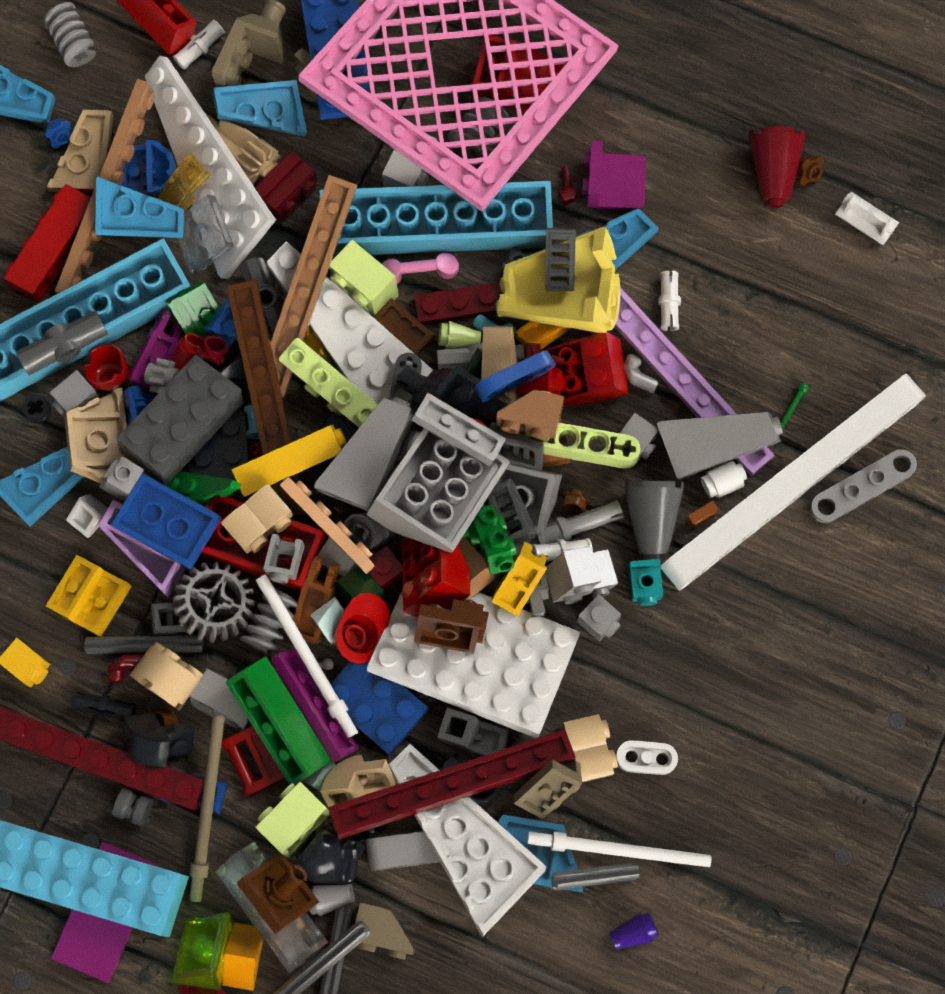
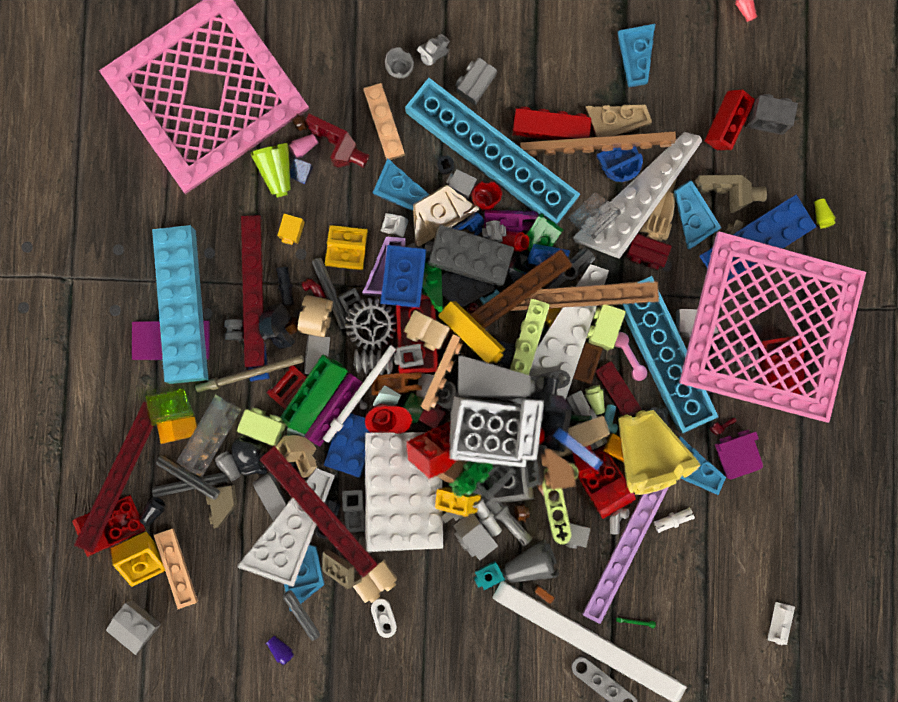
camera: 65 degrees right, 10 degrees up
(58, 132) = (624, 96): blue plate -> none
(61, 343) = (486, 164): dark grey piece -> none
(69, 35) = (689, 72): light grey piece -> none
(121, 478) = (419, 237): light grey window -> none
(134, 214) = (587, 168): dark azure wing -> none
(184, 183) = (620, 189): clear yellow slope -> none
(199, 44) = (719, 156): white pin -> none
(213, 349) = (526, 255): dark red plate -> none
(283, 888) = (217, 441): reddish brown plate -> none
(454, 628) = (410, 480): reddish brown plate -> none
(534, 348) = (601, 452): dark red hand -> none
(559, 842) = (312, 587): white bar -> none
(560, 283) = (657, 449): dark grey slope -> none
(600, 618) = (454, 557): light grey brick -> none
(712, 441) = (591, 583): light grey slope -> none
(723, 479) = (572, 598): white brick -> none
(776, 162) = (792, 553): dark red cone -> none
(810, 169) = (798, 575): reddish brown plate -> none

